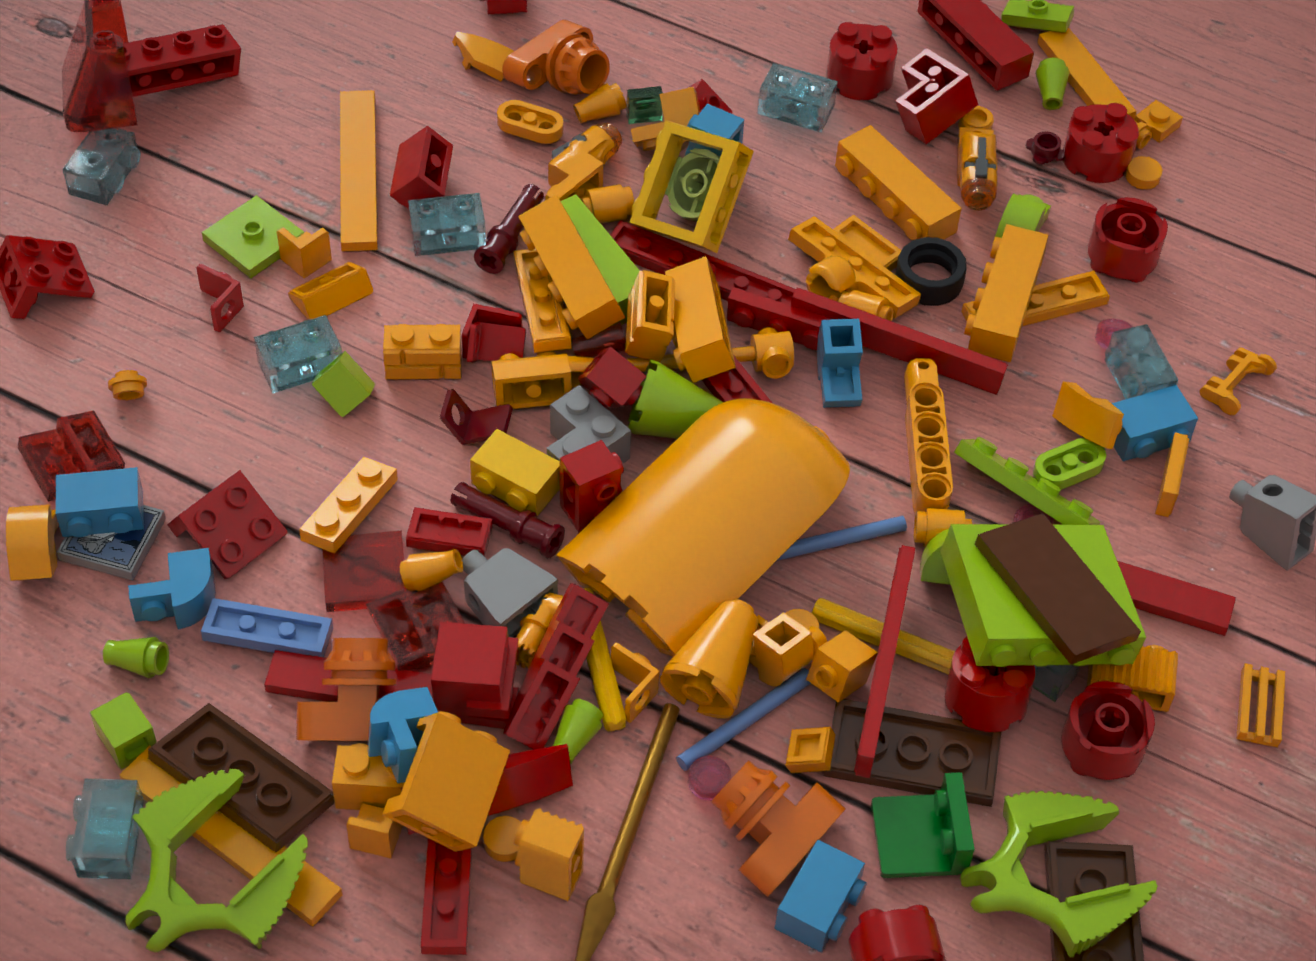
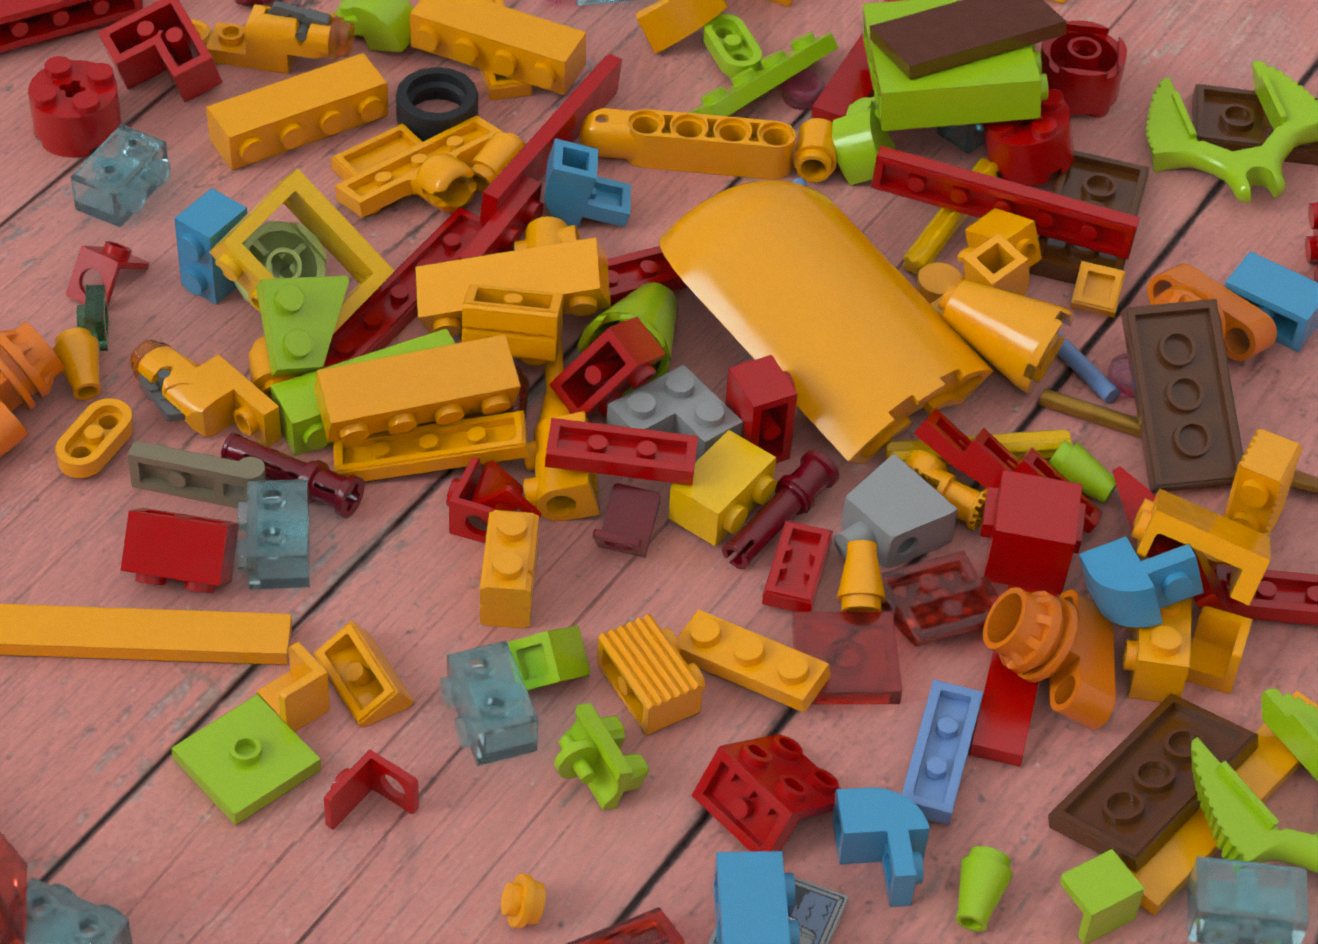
camera: 85 degrees left, 5 degrees down
(250, 411) = (594, 756): none -> lime hips
(330, 442) = (650, 673): none -> light orange brick
(498, 176) = (192, 474): none -> dark tan plate
(517, 389) = (621, 451): none -> red plate
(629, 193) = (300, 320): none -> lime wing
(639, 671) = (1017, 405): light orange bracket -> none
(657, 794) = (1183, 394): none -> reddish brown tile
(678, 108) = (158, 278): light orange brick -> none
(924, 832) = (1194, 210): green bracket -> none

